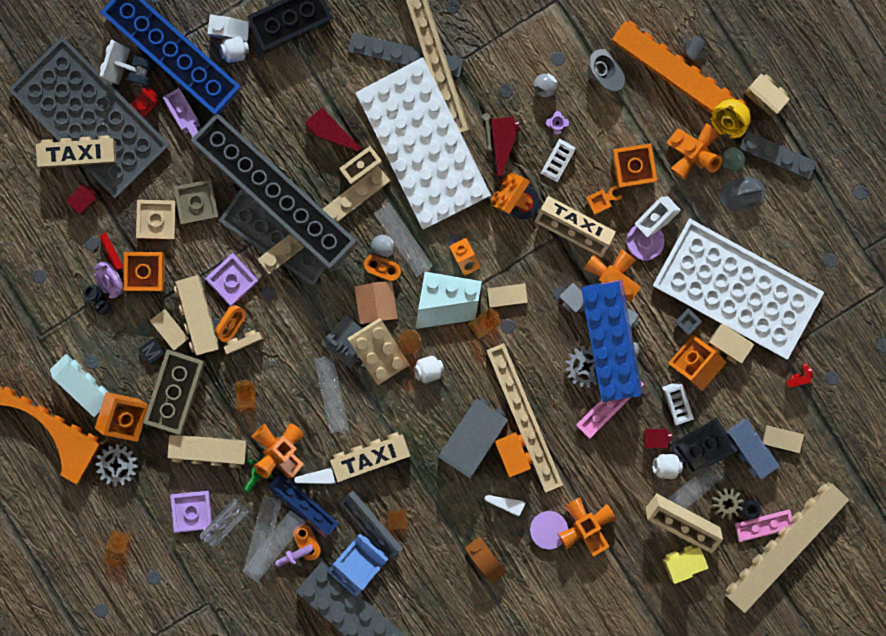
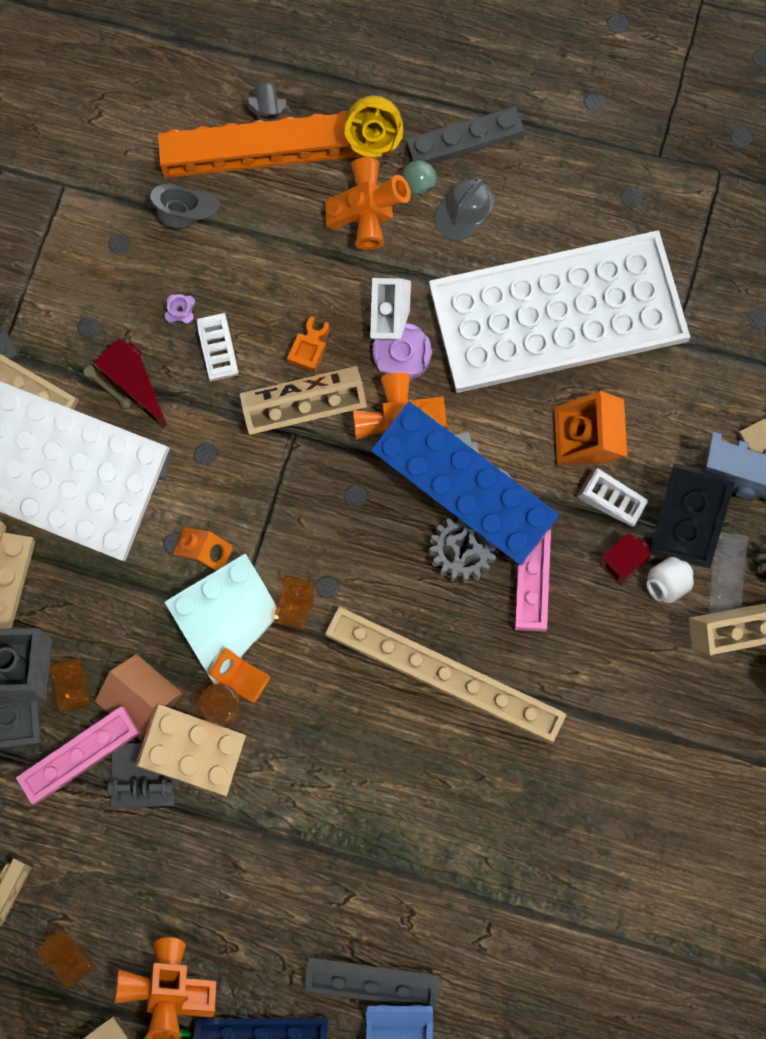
camera: 35 degrees left, 15 degrees down
(319, 477) = (253, 977): white slope -> none
(326, 307) = (78, 755): none -> bright pink plate
(331, 394) = (178, 859): clear plate -> none
(349, 271) = (70, 685): none -> clear orange bracket
(370, 457) = (295, 894): tan brick -> none
(382, 246) = (87, 621): light grey piece -> none
(382, 267) = (110, 645): orange plate -> none
(397, 519) = (399, 945): clear orange tile -> none
(403, 239) = (107, 592): clear plate -> none
(428, 369) = (273, 719): white head -> none
(430, 336) = (241, 676): none -> orange bracket
(473, 437) = (402, 753): dark grey slope -> none
(485, 560) = (557, 894): dark orange brick -> none
(507, 295) = (294, 549): tan tile -> none
(510, 505) = (523, 798): white slope -> none
(513, 454) = (470, 727): orange brick -> none
(516, 197) = (203, 425): orange plate -> none
(545, 85) = (127, 278): light grey piece -> none
(545, 529) = (600, 786): lavender tile -> none
(572, 299) = (377, 483): light grey brick -> none
(587, 527) = (644, 739): orange brick -> none
(634, 166) = (311, 276): orange brick -> none
(688, 321) = (535, 395): dark grey plate -> none
(730, 343) = (610, 373): tan brick -> none
(767, 95) = (394, 81): tan slope -> none
(796, 379) = (728, 342): red bracket -> none

